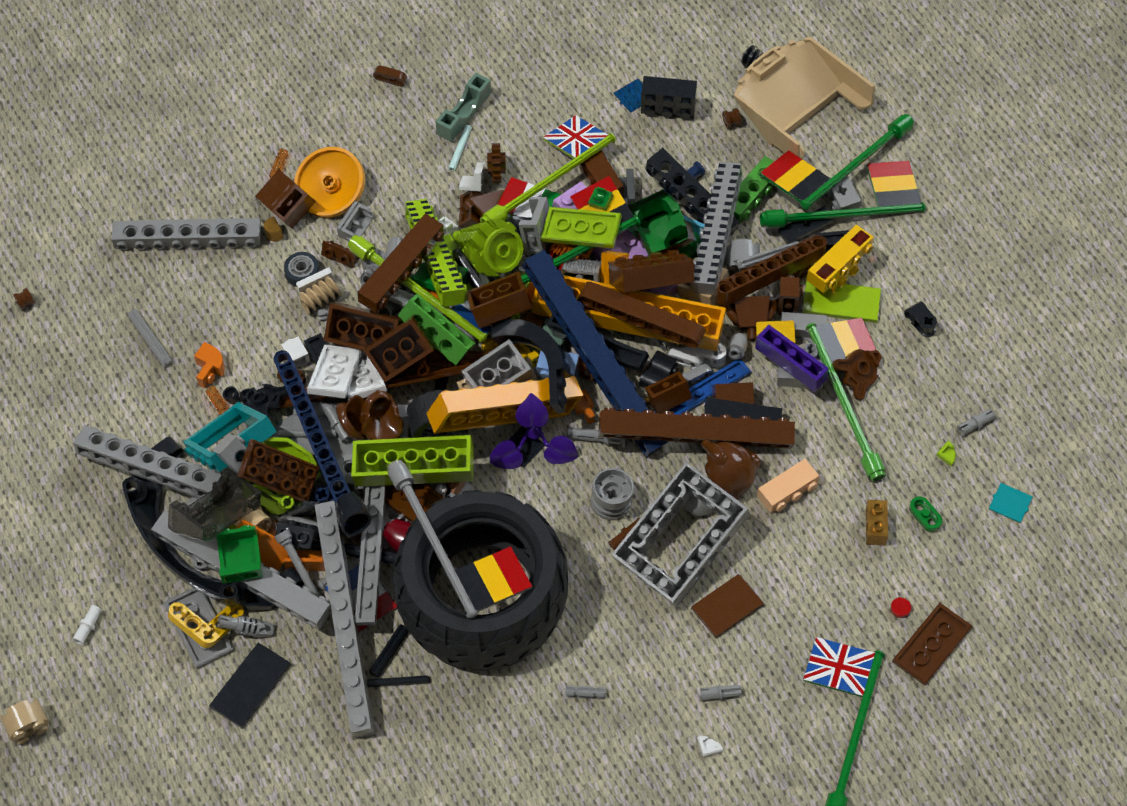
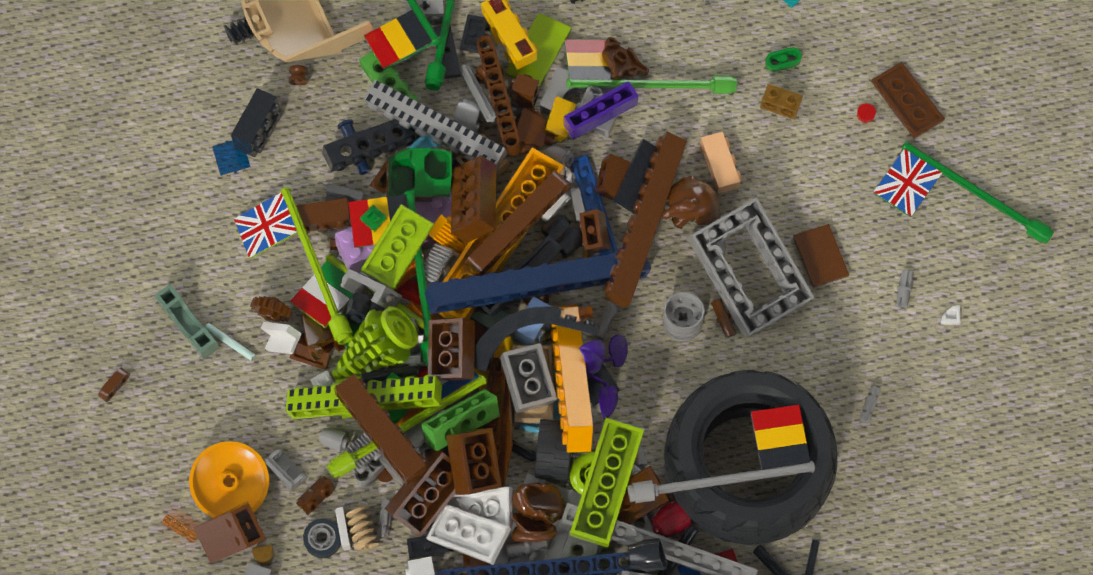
camera: 75 degrees left, 10 degrees up
(947, 453) = (727, 20): lime tile -> none

